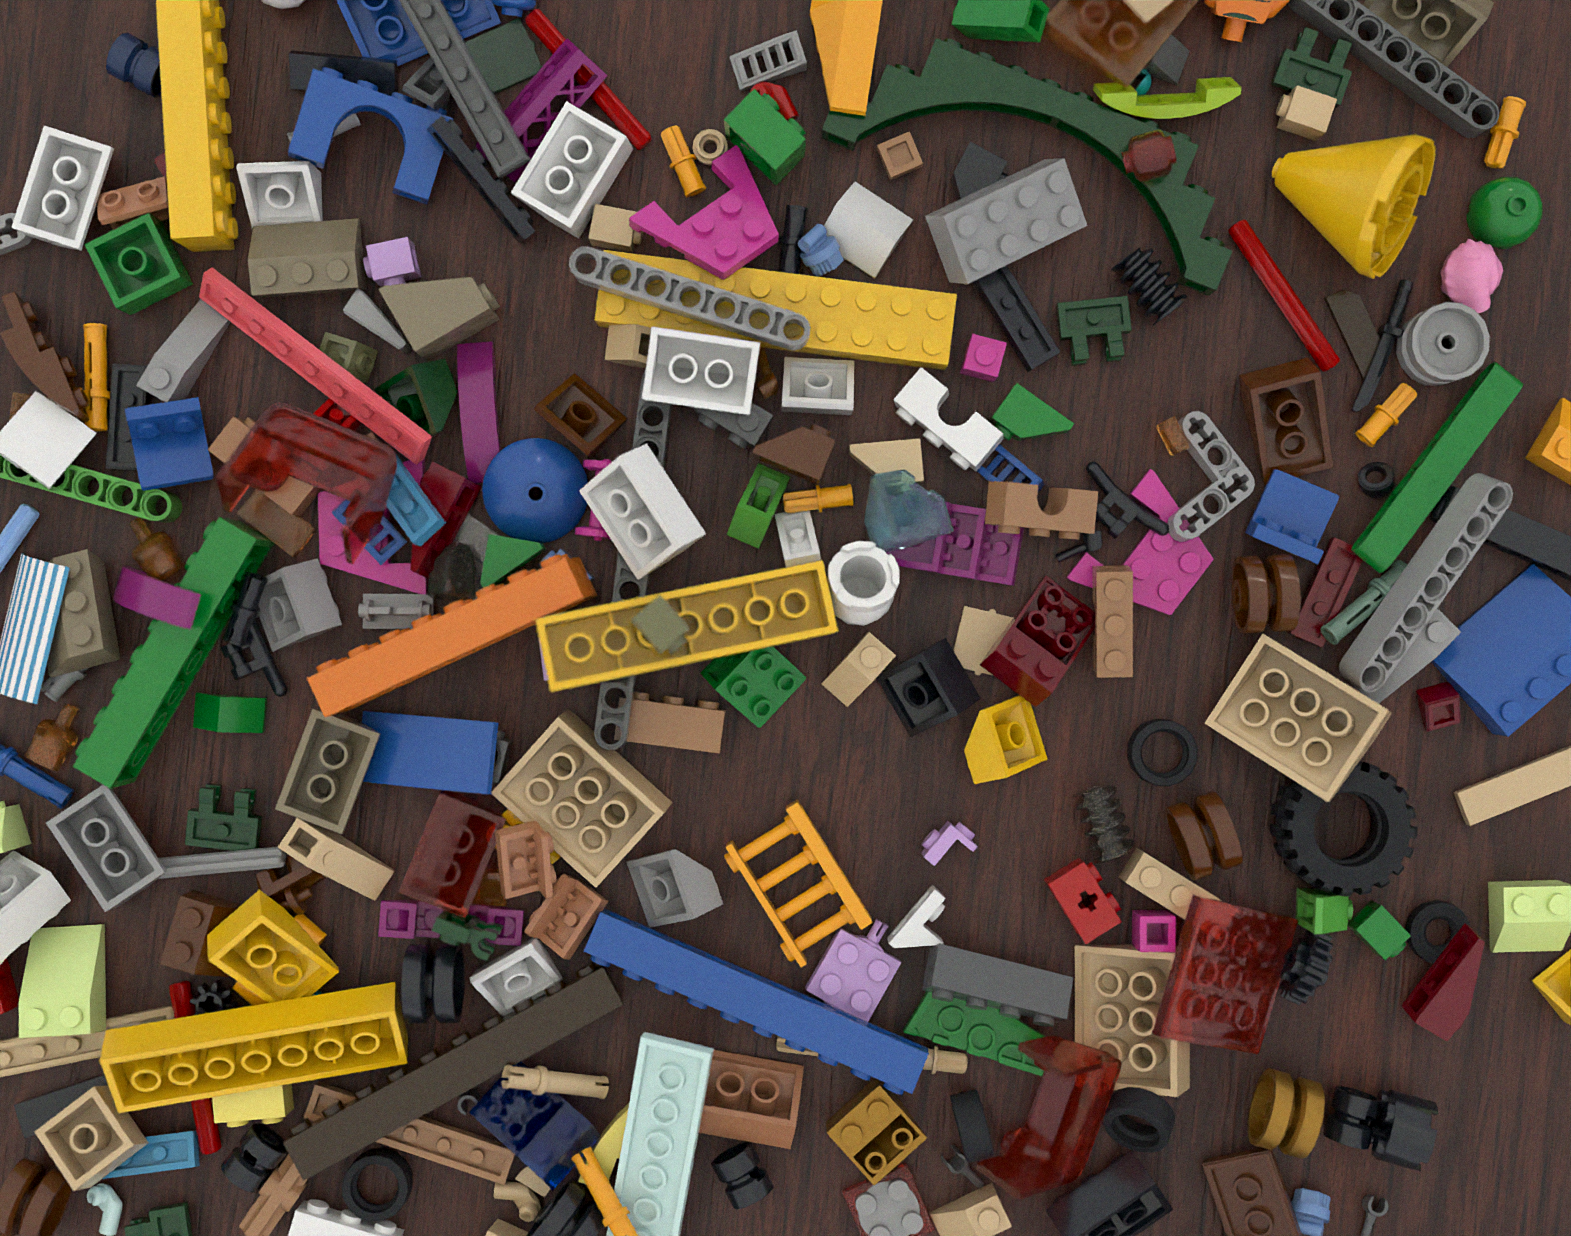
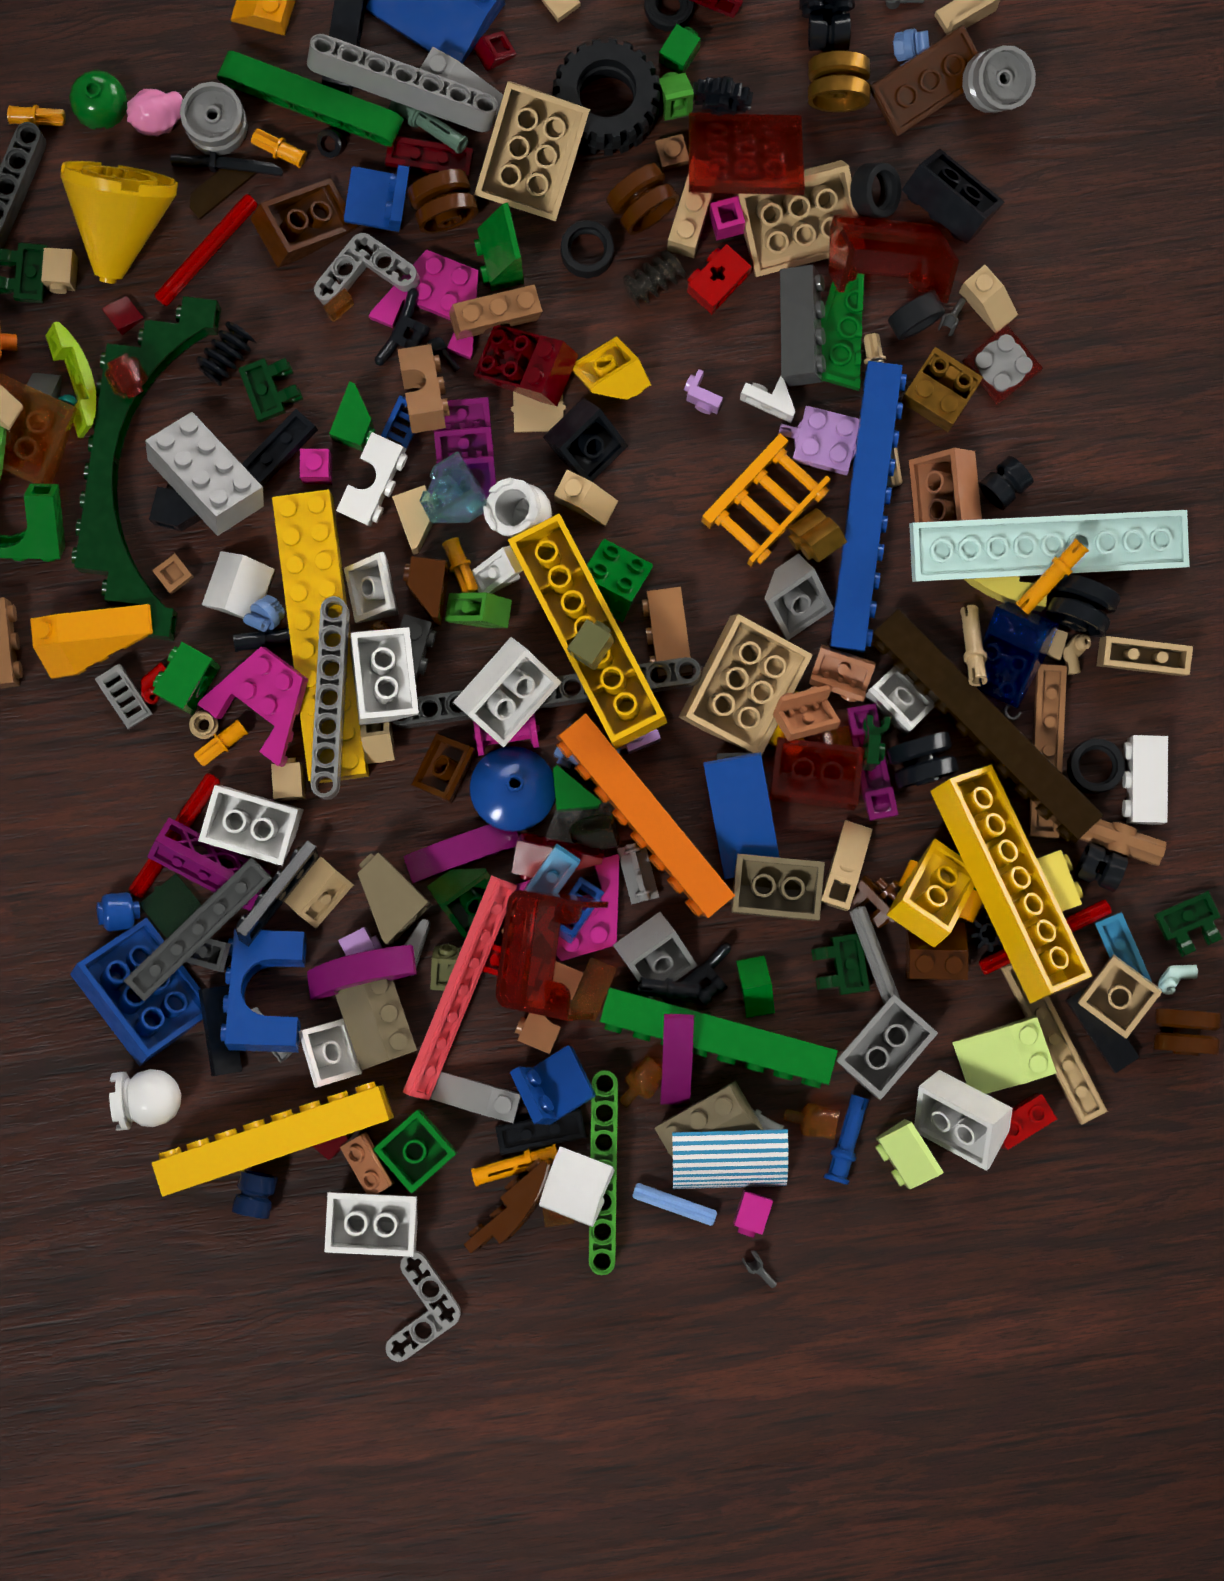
camera: 110 degrees left, 5 degrees down
(362, 255) = (360, 969): none -> magenta slope
(474, 230) = (318, 892): none -> tan panel
(736, 931) = (816, 535): none -> pearl gold brick
(1186, 646) = (500, 250): none -> green slope
(1230, 175) = (123, 314): none -> dark red slope
(1254, 886) = (672, 152): none -> medium nougat plate

